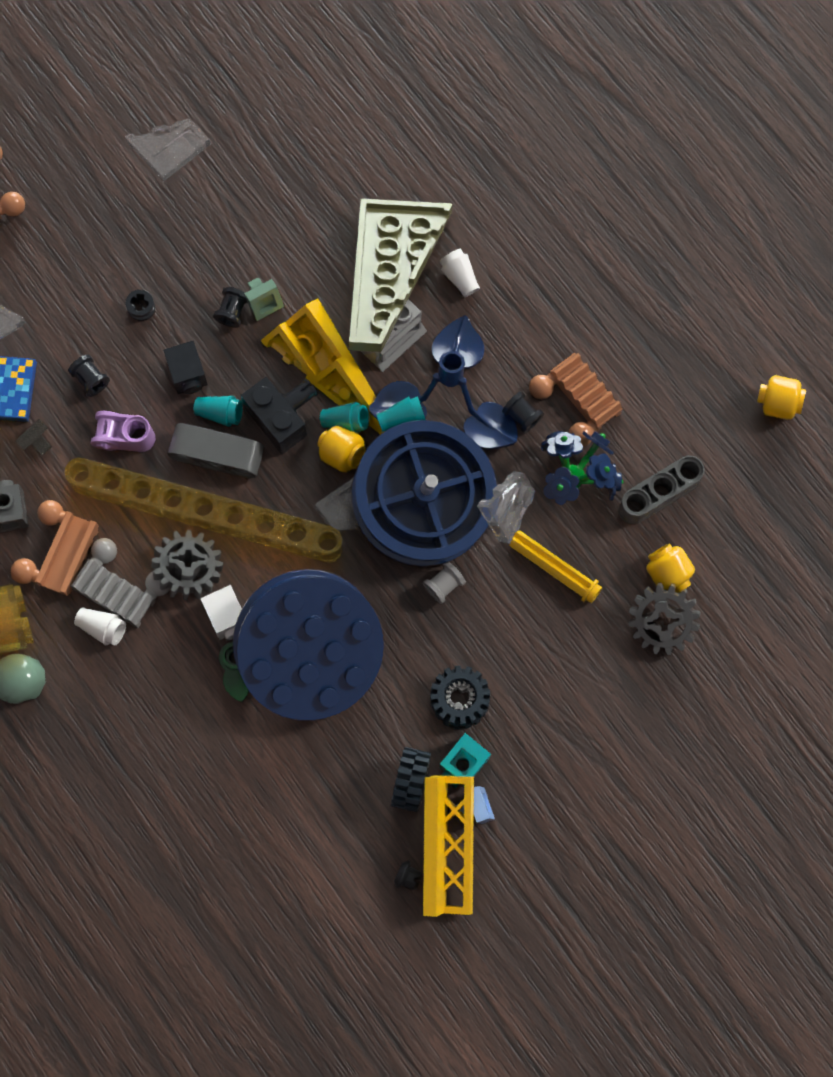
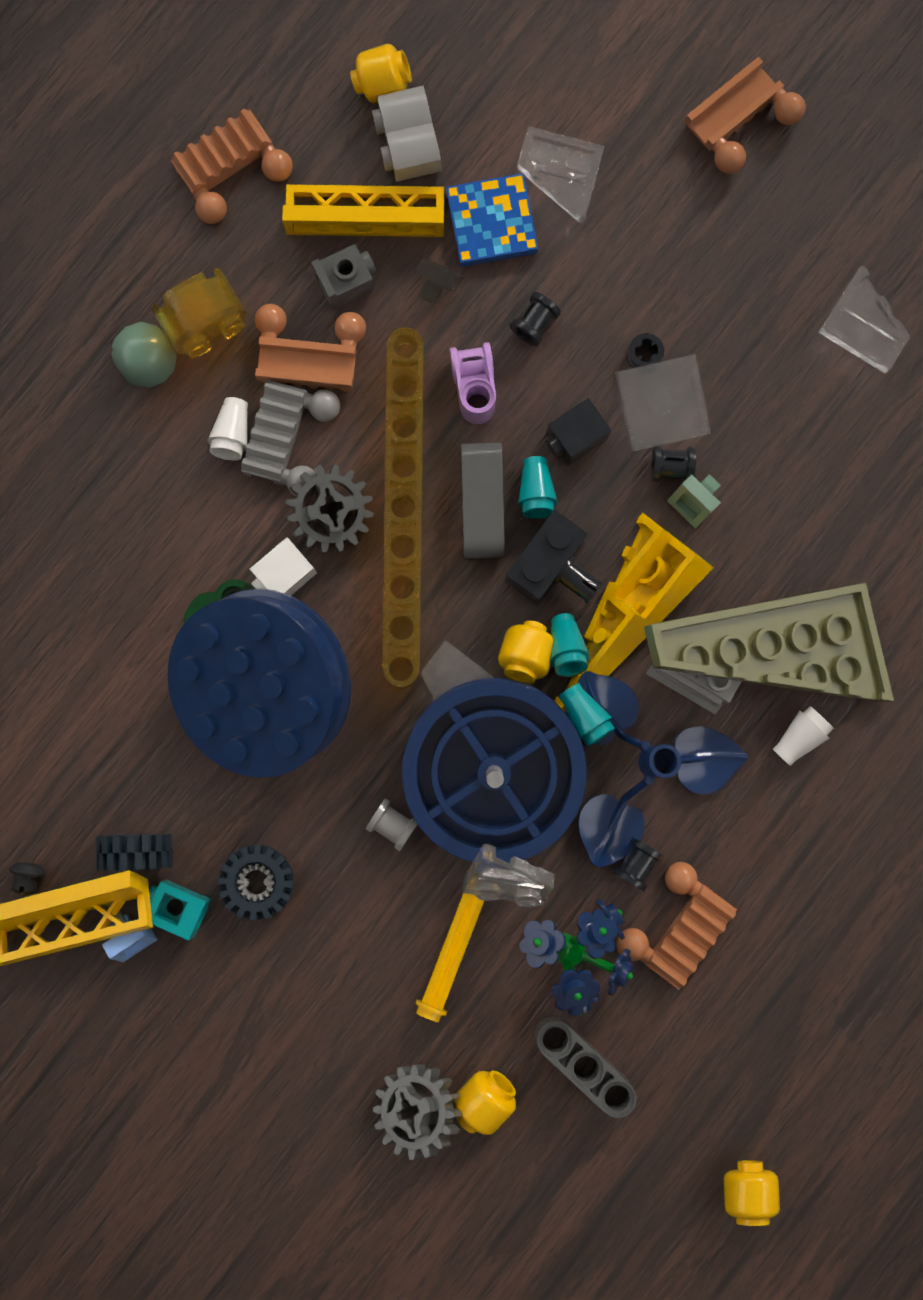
camera: 70 degrees right, 10 degrees up
(182, 301) = (663, 402): none -> clear plate

